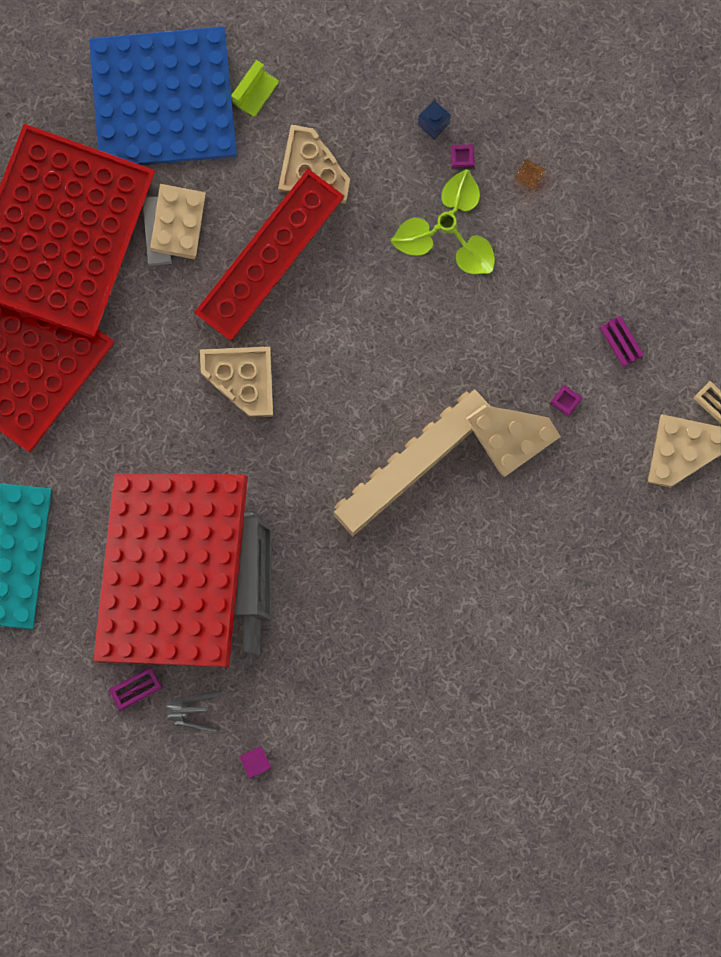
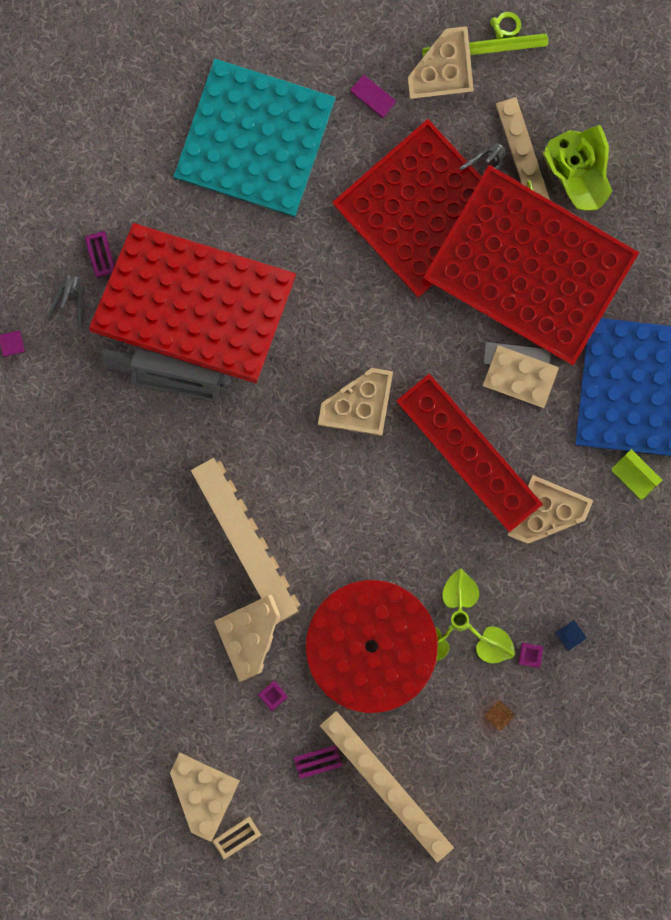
camera: 110 degrees right, 5 degrees up
(496, 276) = (404, 652): none -> red plate
(629, 266) = (386, 786): none -> tan brick

